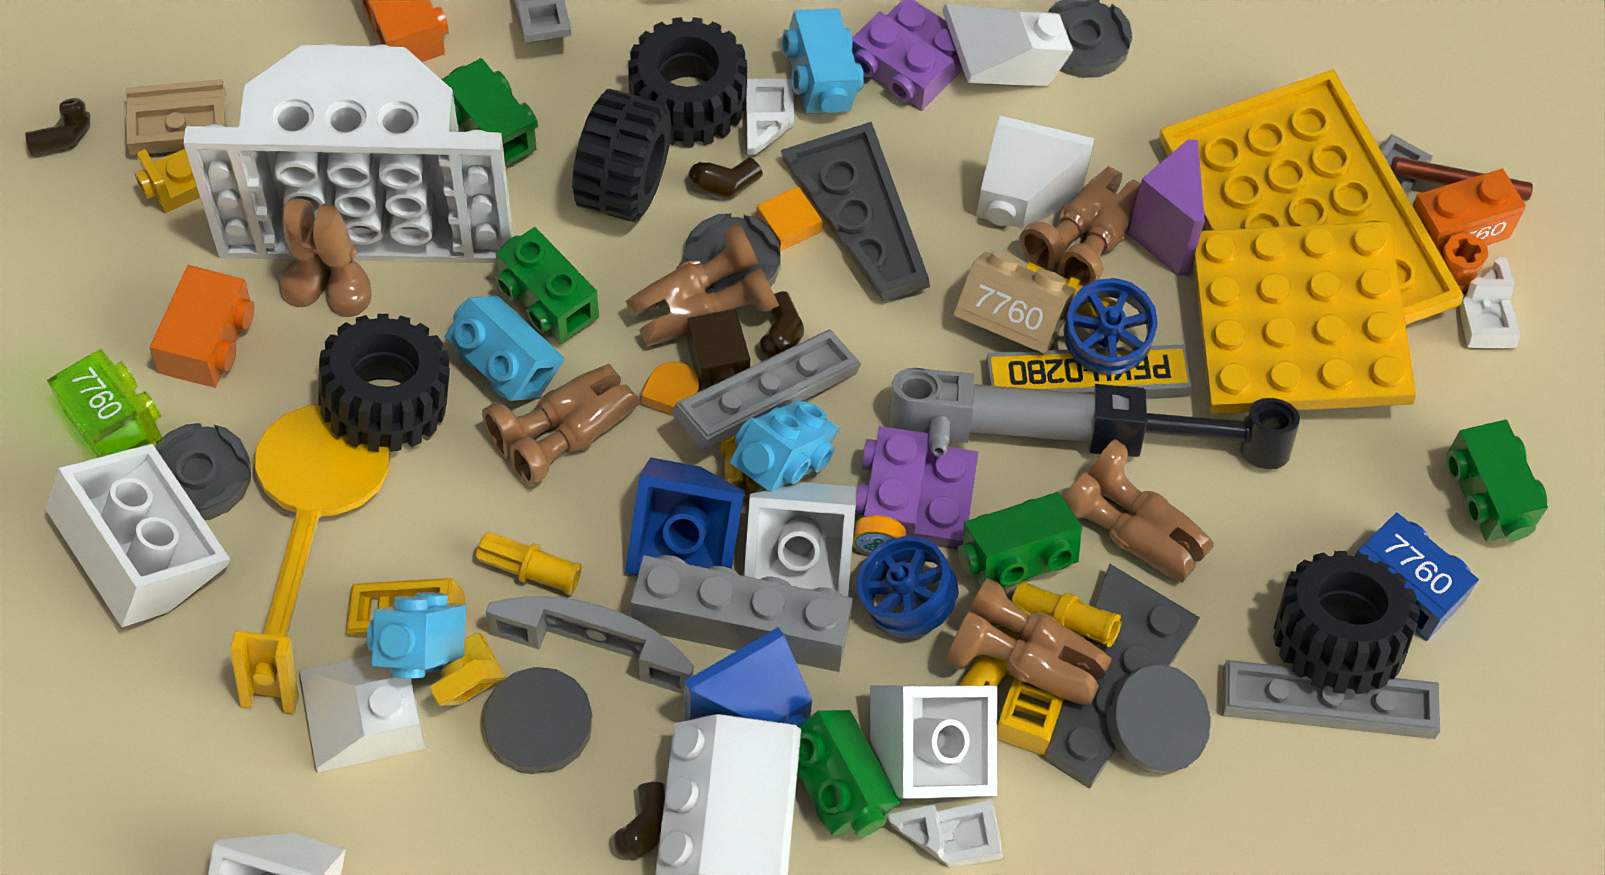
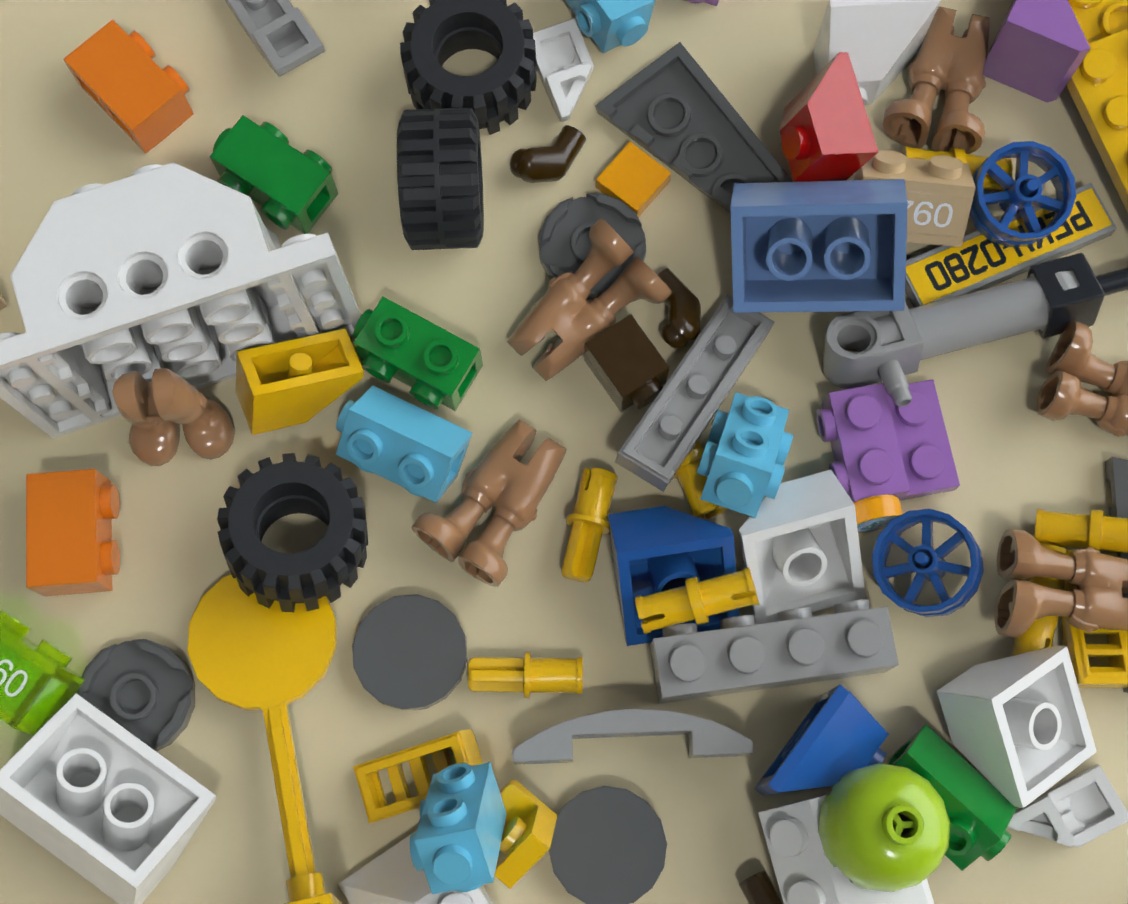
camera: 15 degrees left, 15 degrees up
(435, 269) = (294, 379): none -> yellow slope
(439, 514) = (410, 652): none -> dark grey tile
(630, 462) = (588, 523): none -> yellow axle
(669, 385) = (593, 420): light orange tile -> none
(693, 539) = (696, 600): none -> yellow pin
(769, 752) = (860, 831): none -> lime cylinder
(914, 304) = (819, 246): none -> medium blue brick
(956, 222) = (827, 126): none -> slope
(1021, 541) = (1022, 470): green brick -> none

